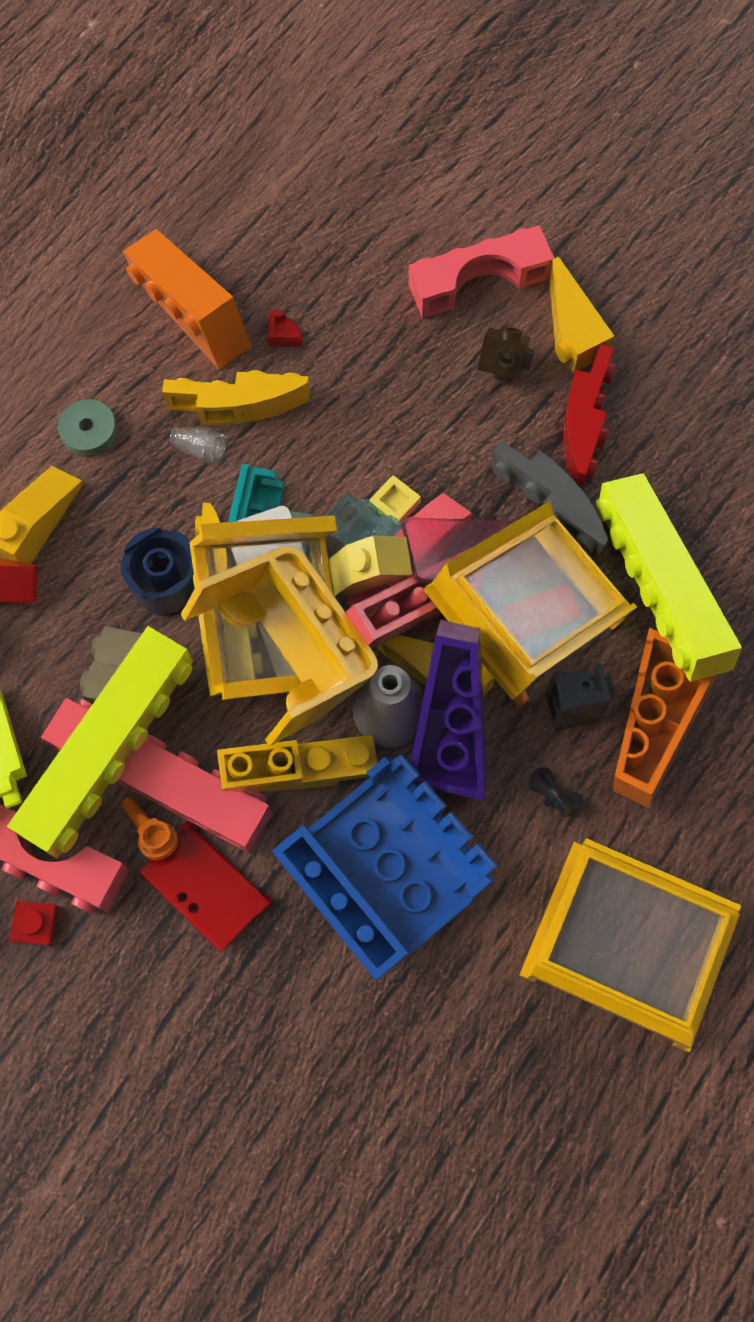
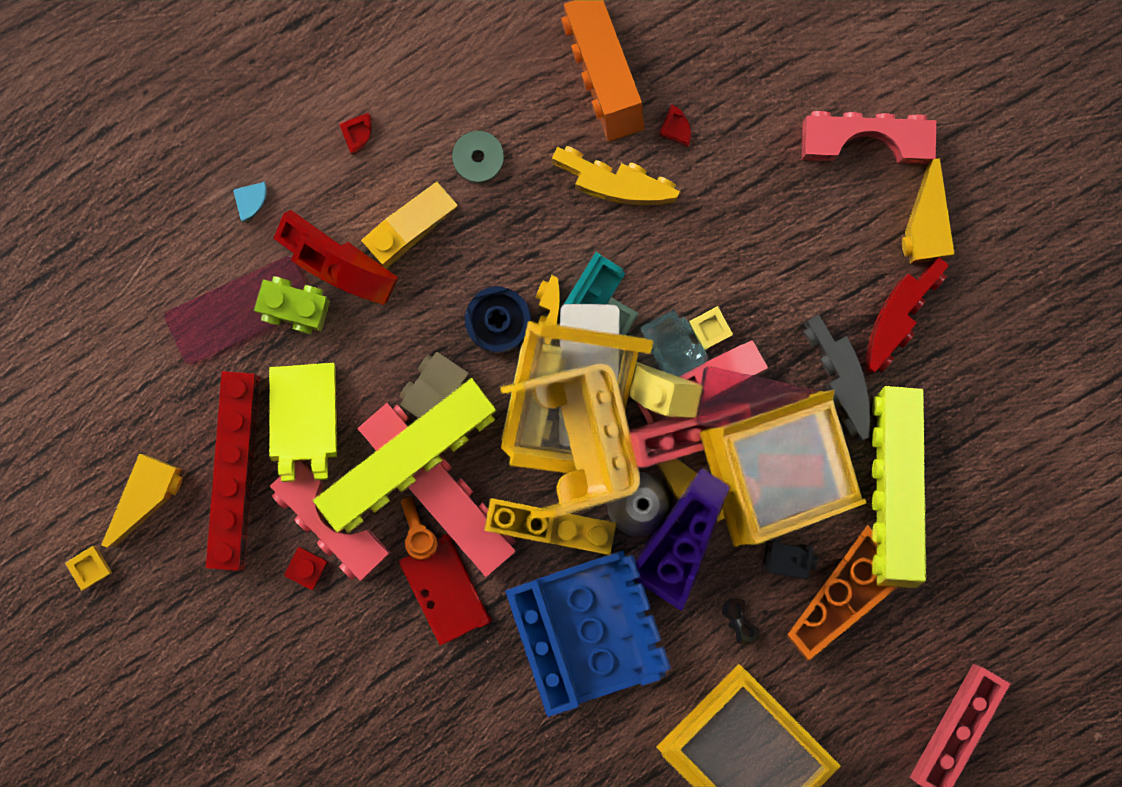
camera: 15 degrees right, 15 degrees up
(200, 443) = (567, 211): clear cone -> none
(493, 355) = (856, 231): dark brown brick -> none

